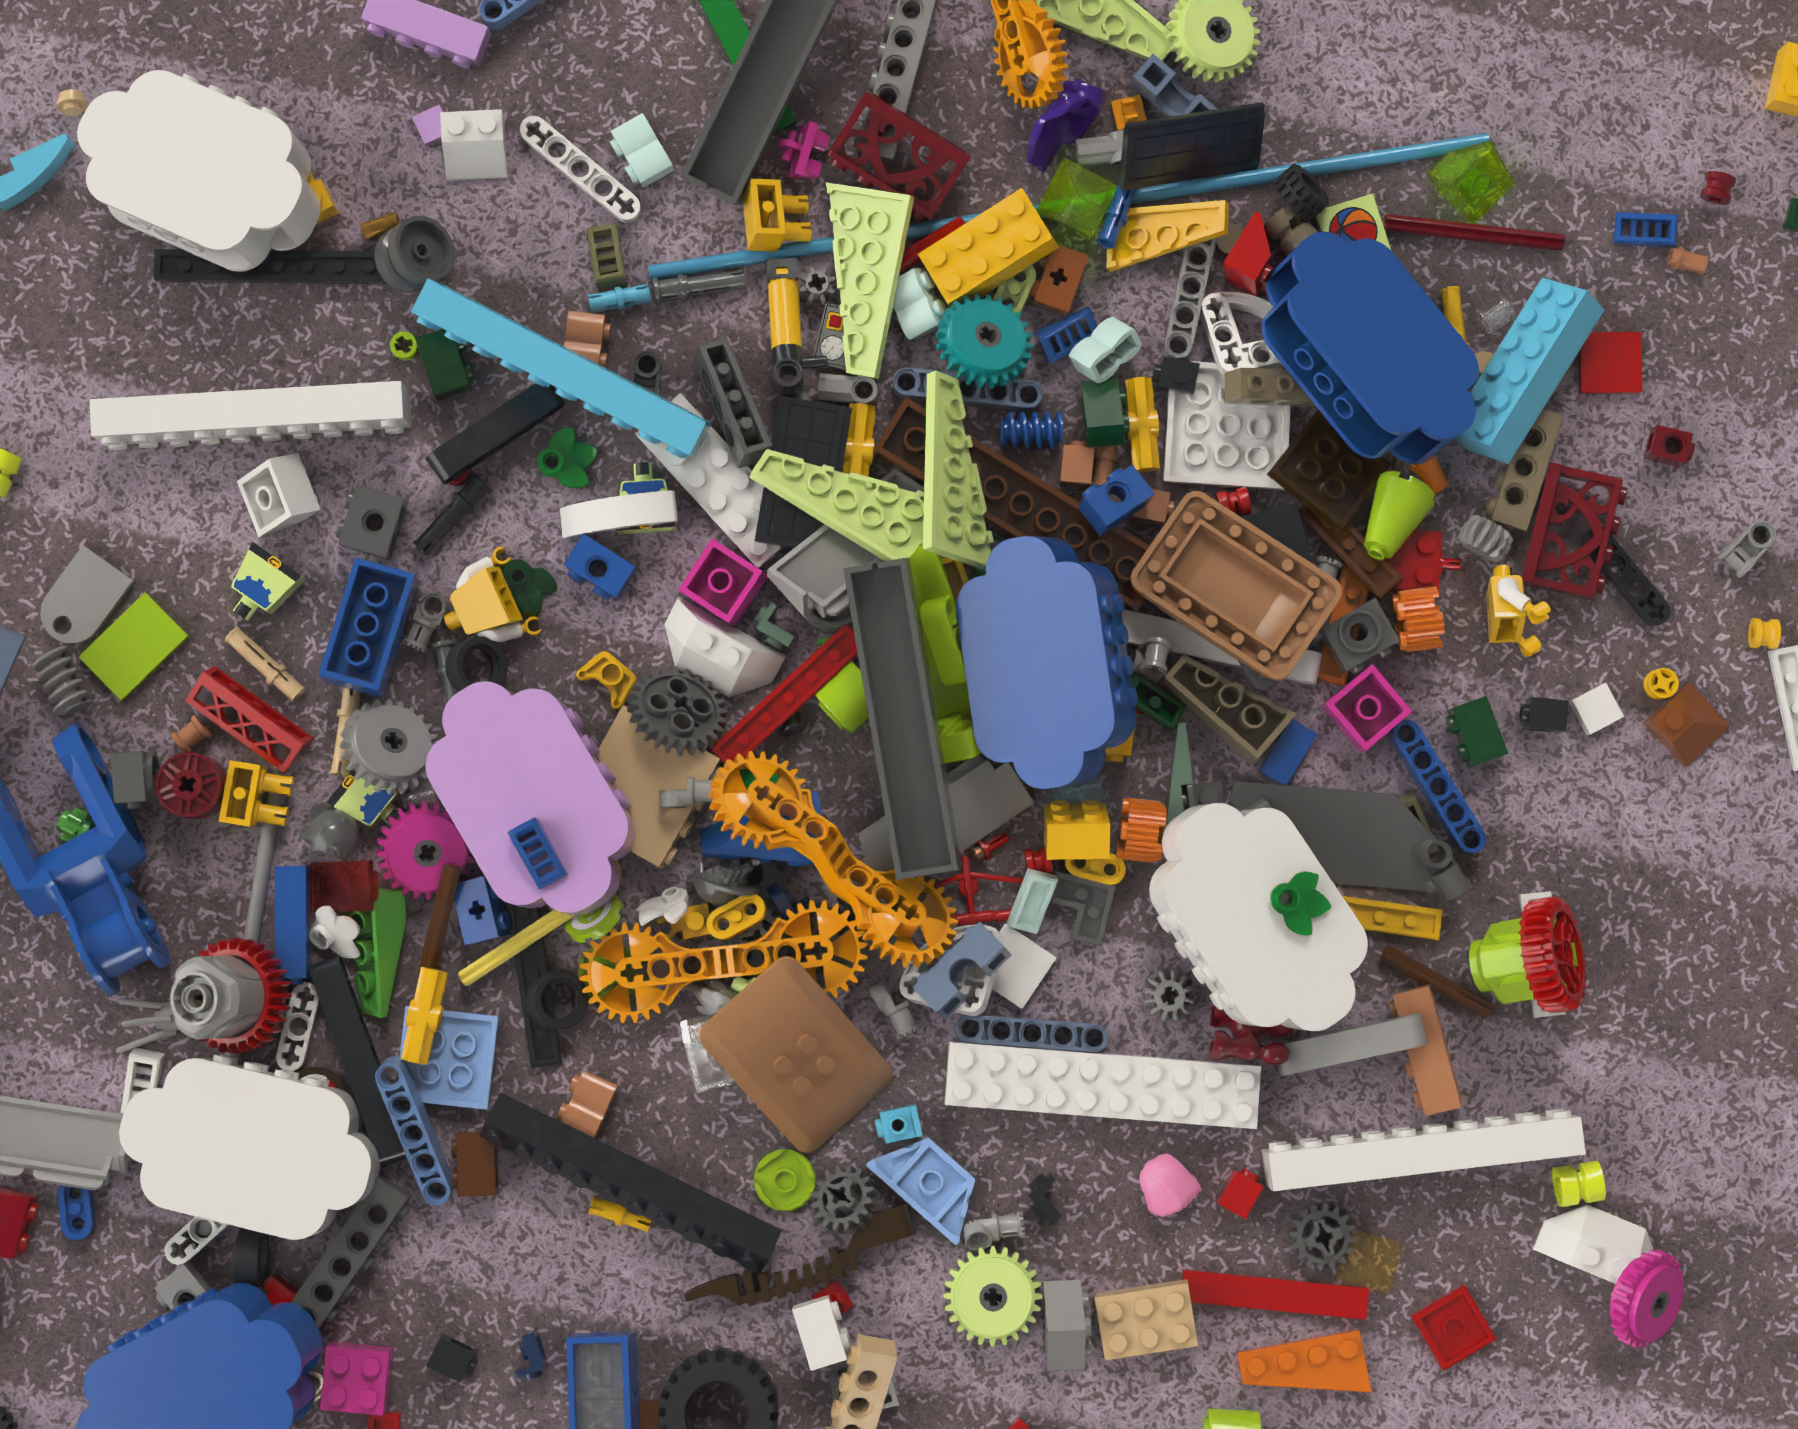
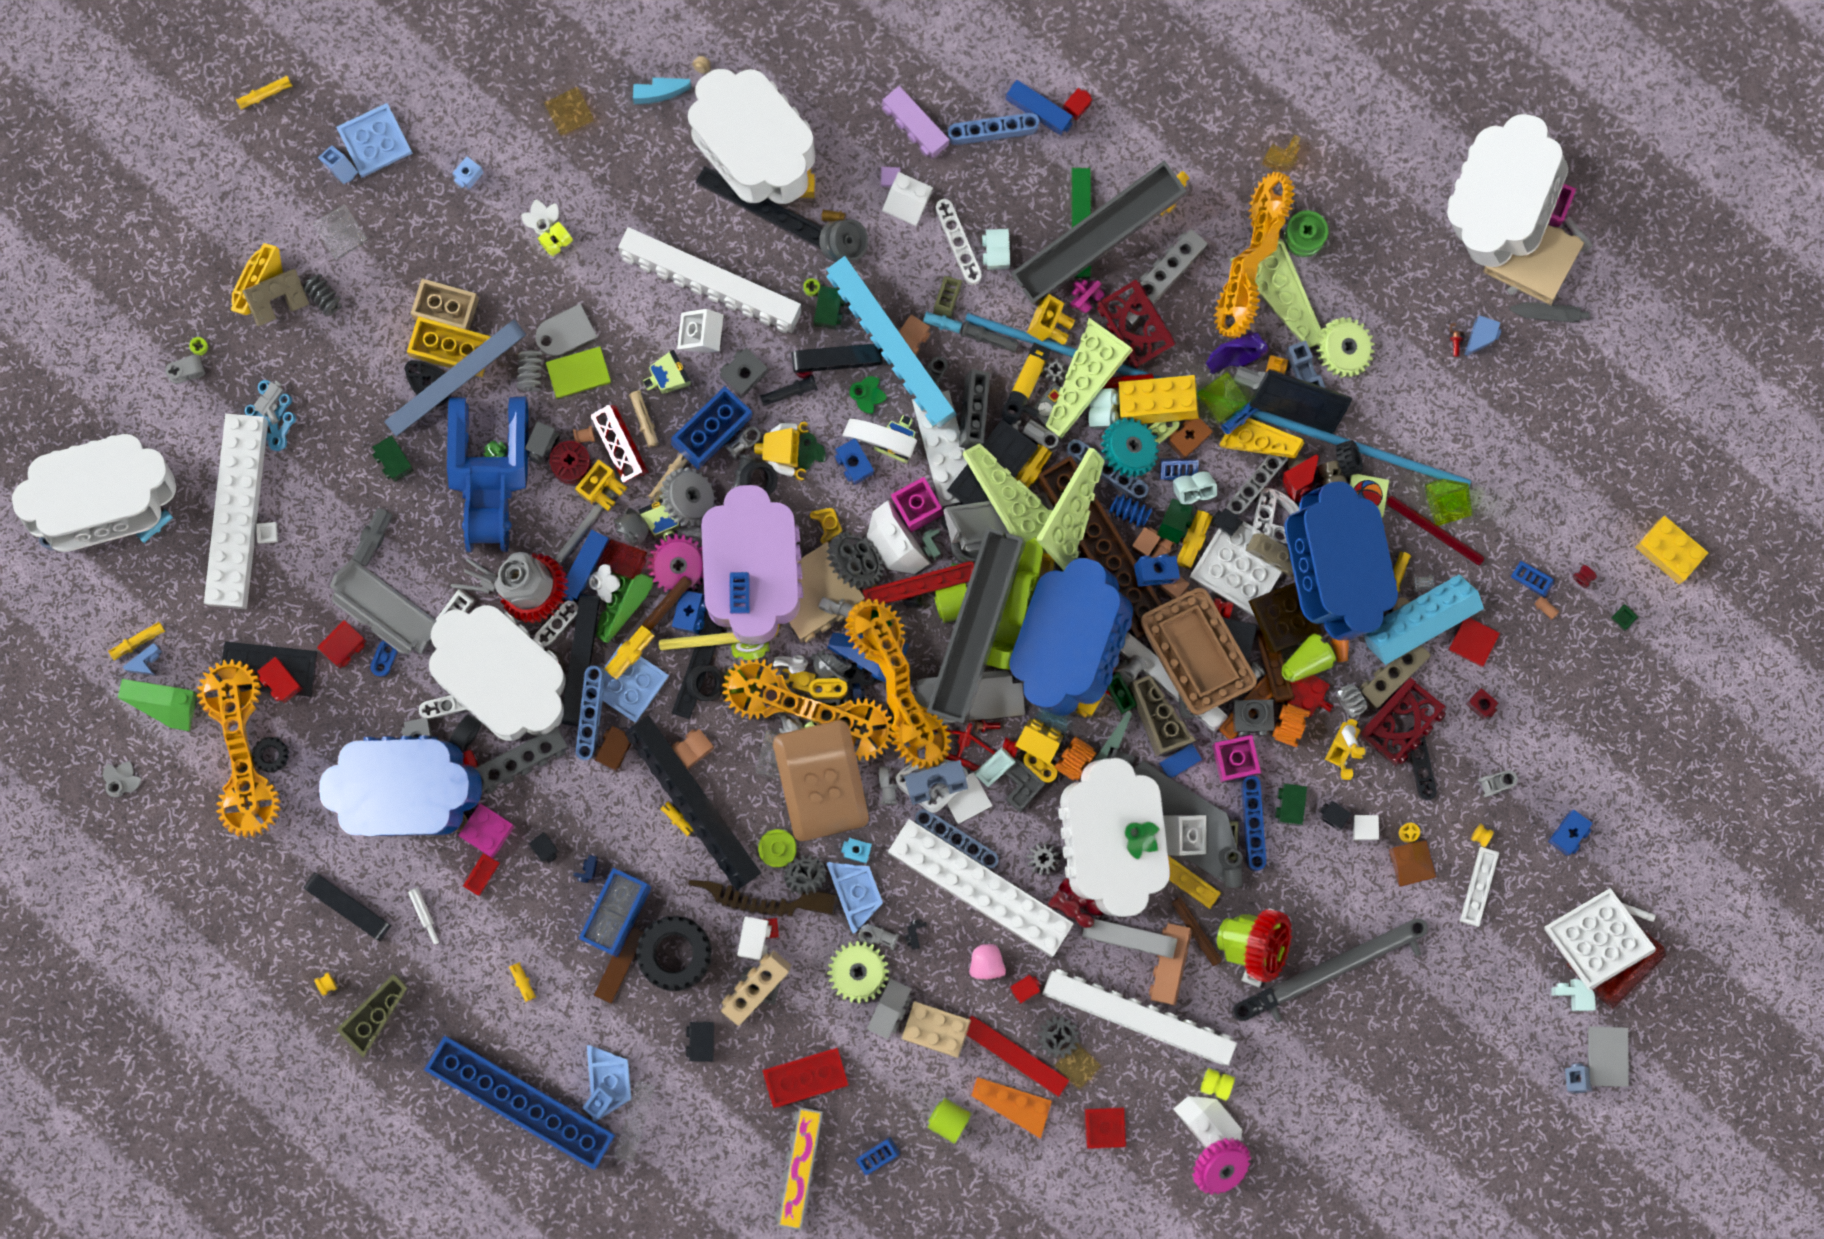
camera: 30 degrees right, 5 degrees down
(1352, 855) = (1185, 834): none -> white slope
(1590, 1020) = (1330, 969): none -> dark grey piece

